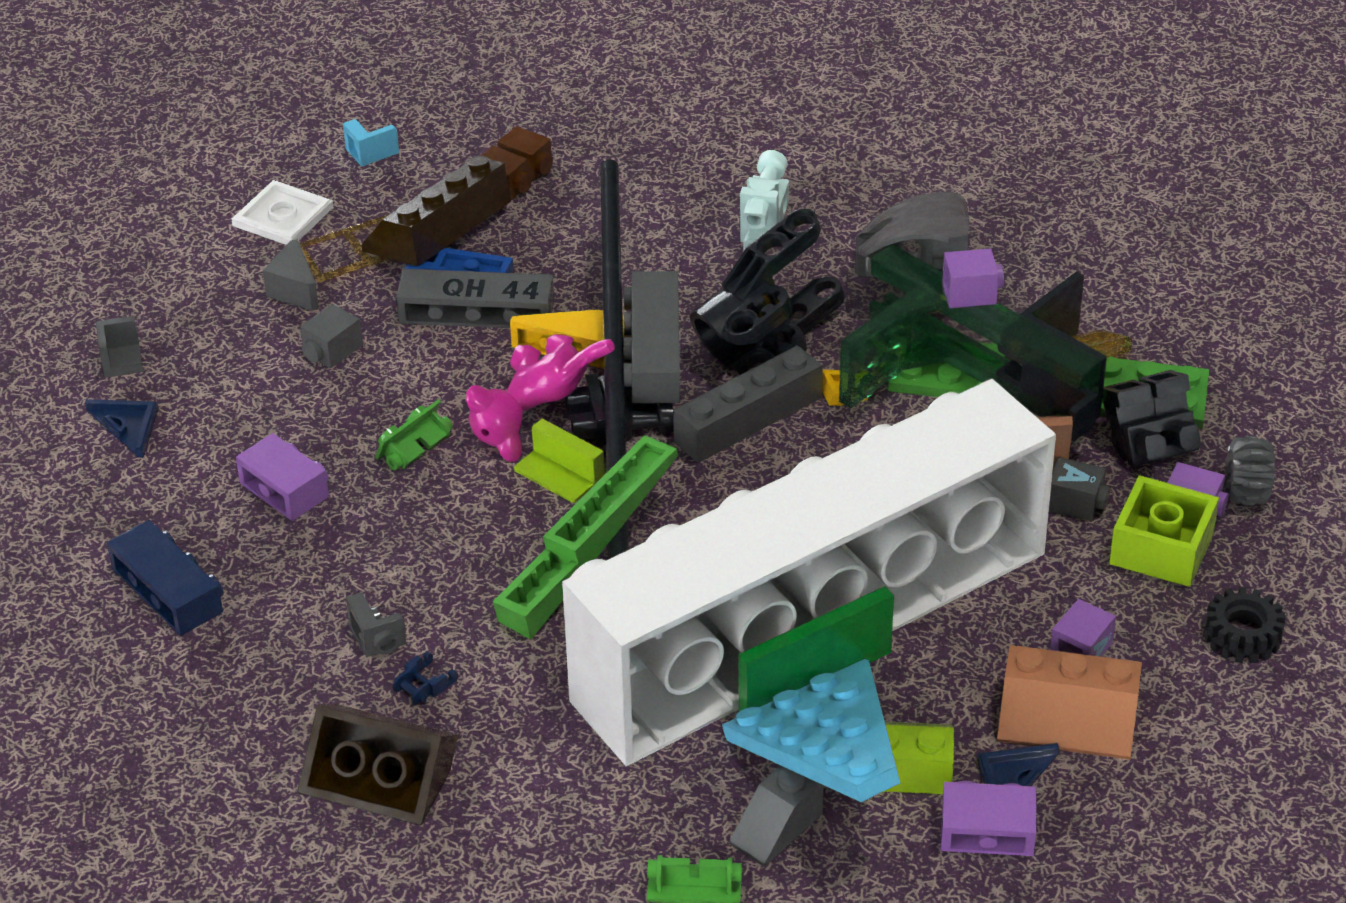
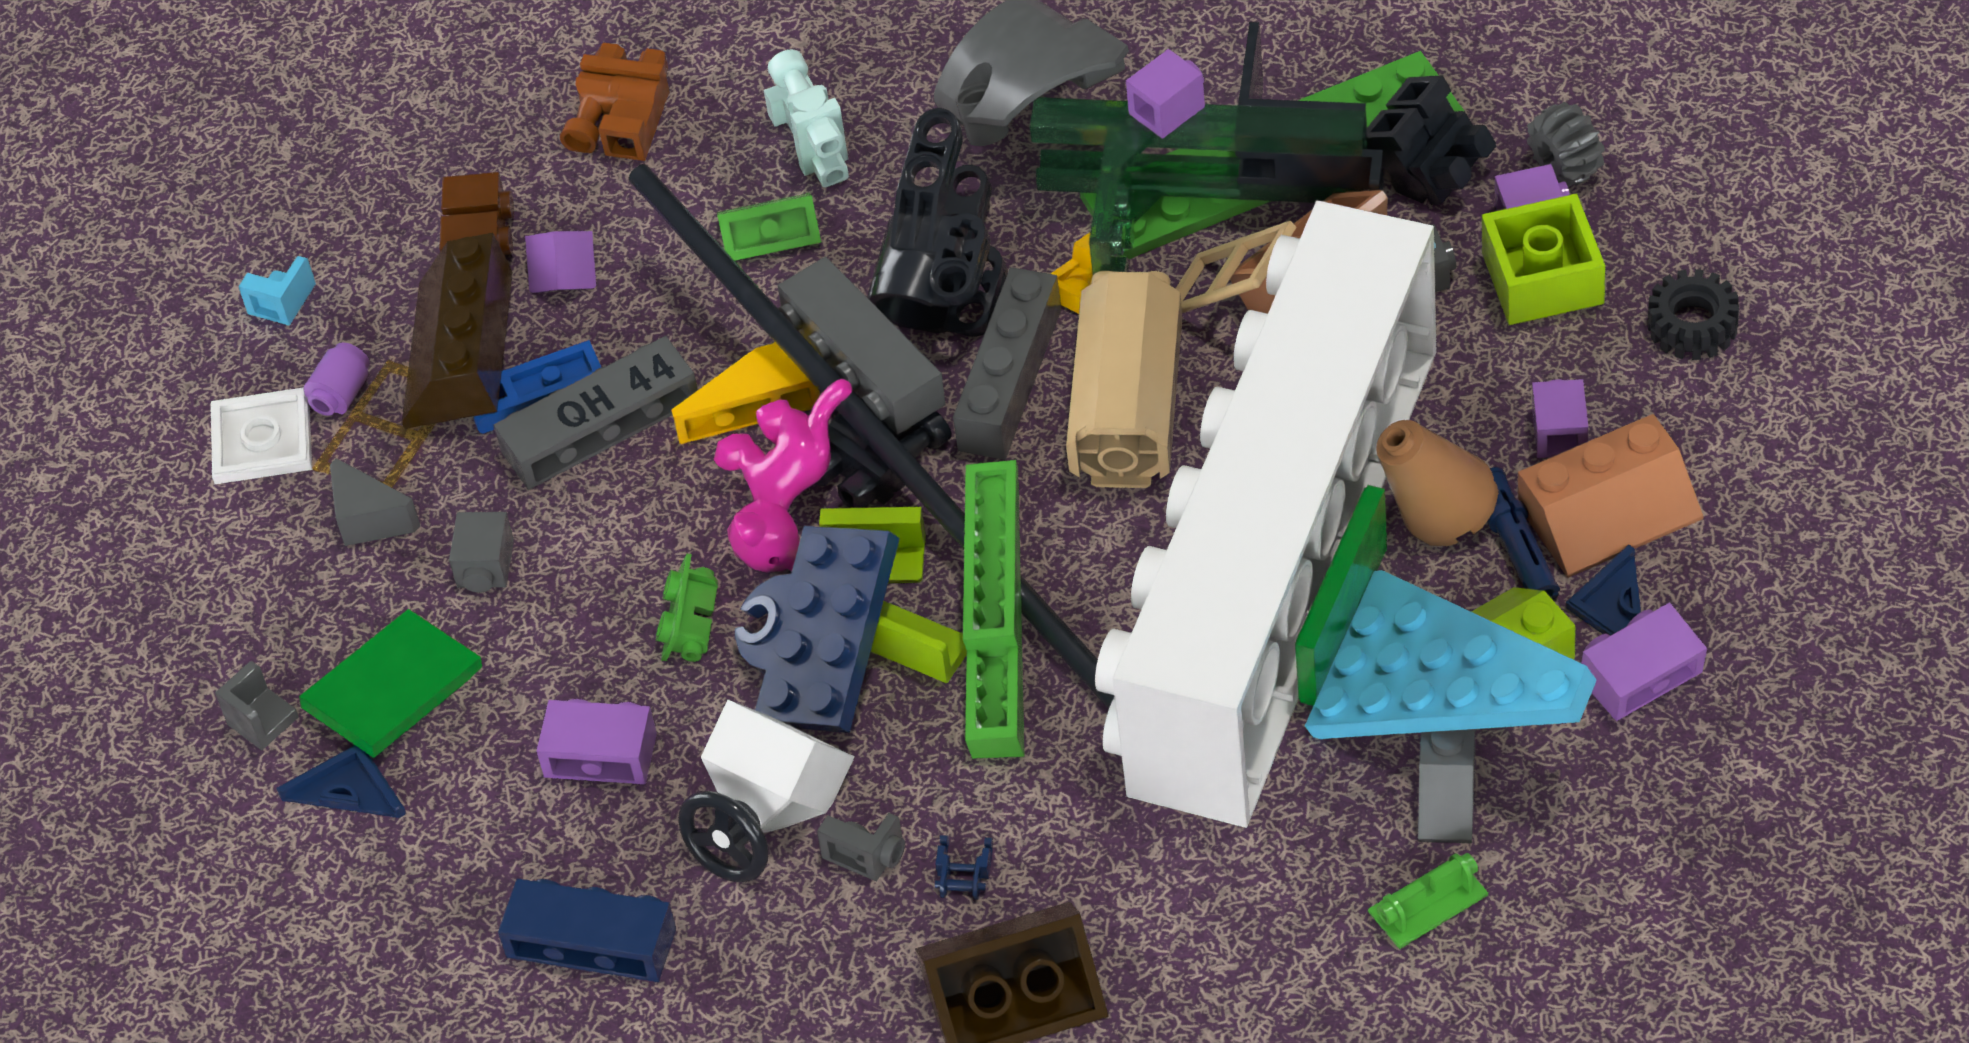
camera: 30 degrees left, 10 degrees up
(206, 379) = (390, 683): none -> green tile
(350, 204) = (337, 379): none -> medium lavender brick
(351, 551) = (763, 782): none -> white piece
(469, 483) = (819, 626): none -> dark blue plate
(523, 523) = (918, 643): none -> lime panel
(543, 208) = (560, 261): none -> medium lavender panel
(666, 143) = (626, 93): none -> dark orange hips
(684, 254) = (769, 227): none -> bright green panel
(817, 425) = (1125, 379): none -> tan brick
(945, 616) = (1435, 483): none -> medium nougat cone
(994, 658) = (1511, 524): none -> dark blue pin
(1106, 342) = (1296, 81): clear yellow tile -> none

